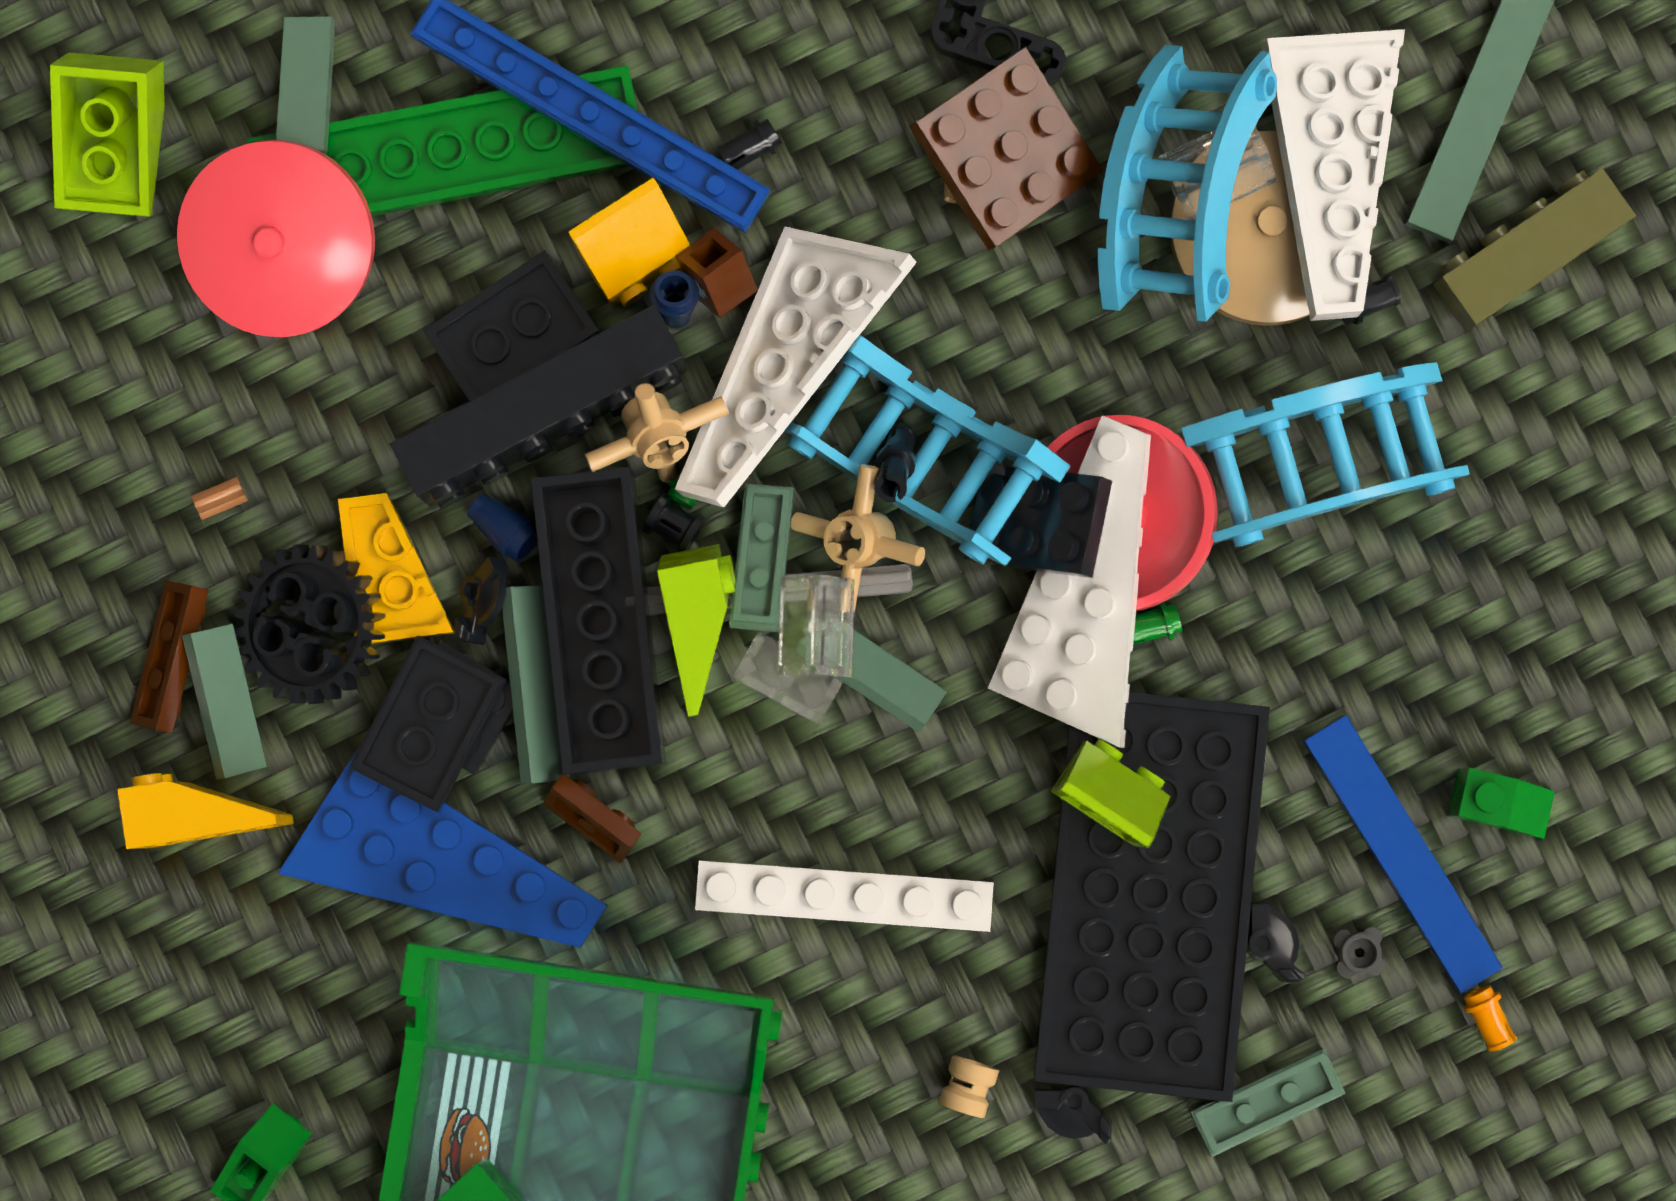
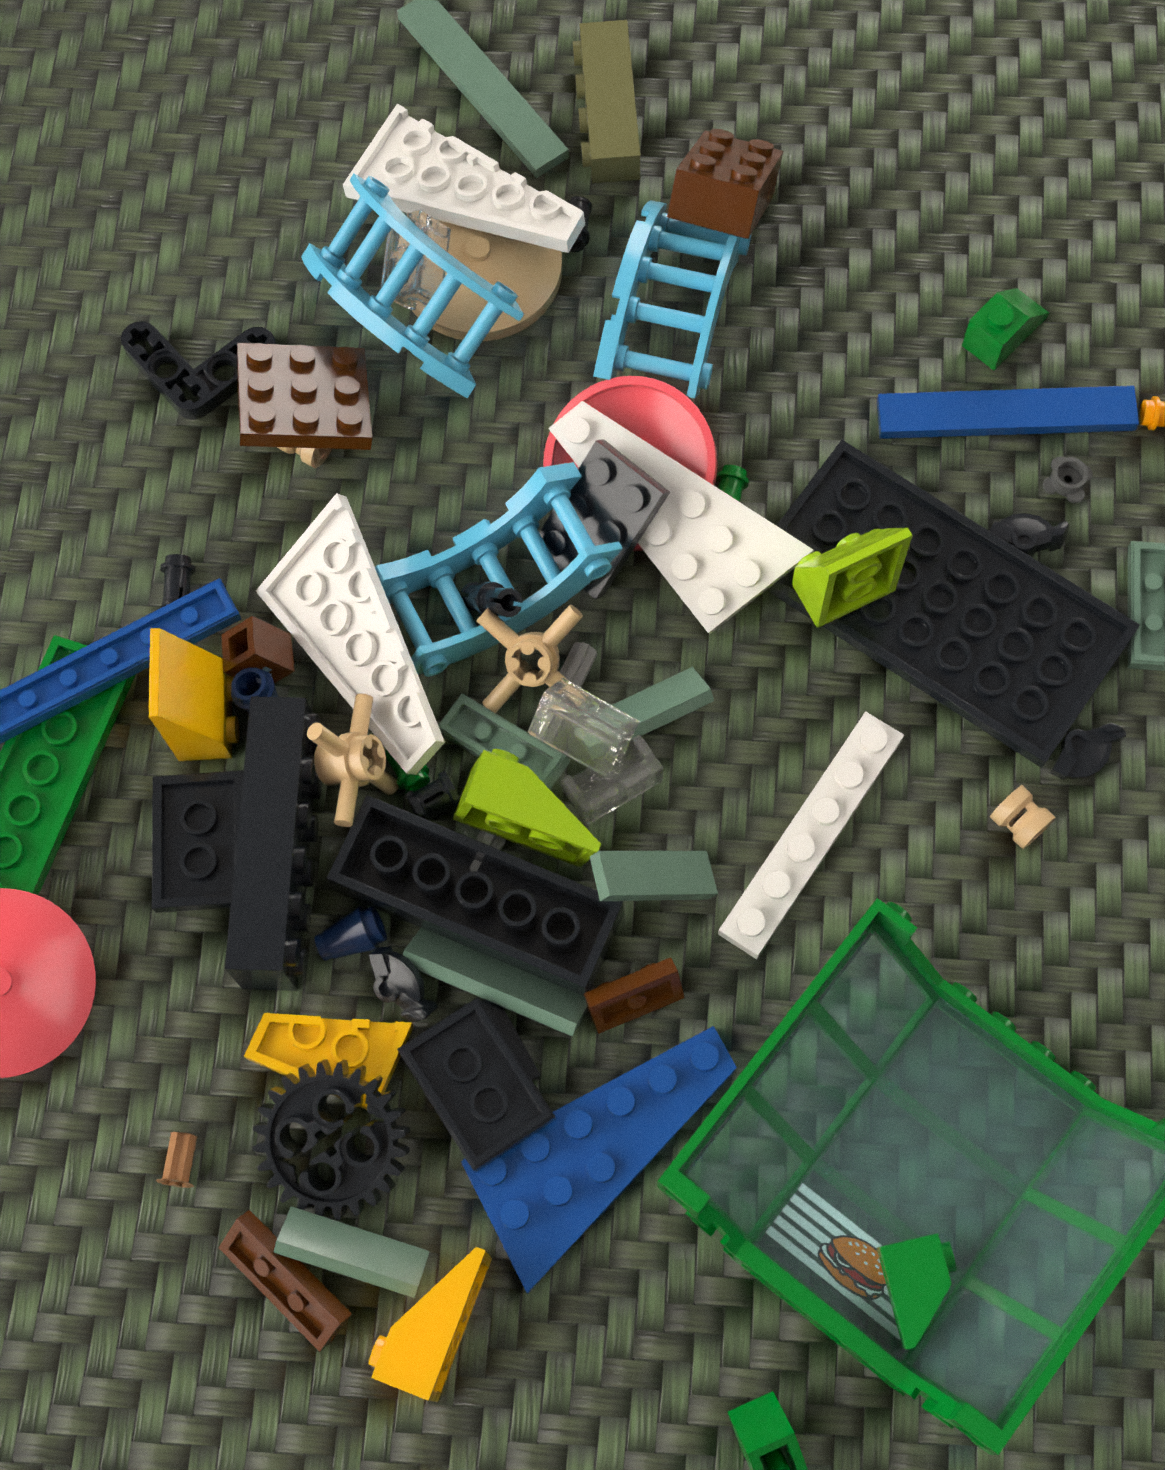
camera: 55 degrees left, 15 degrees down
(707, 775) = (653, 875): none -> sand green tile
(1485, 434) = (725, 183): none -> reddish brown brick

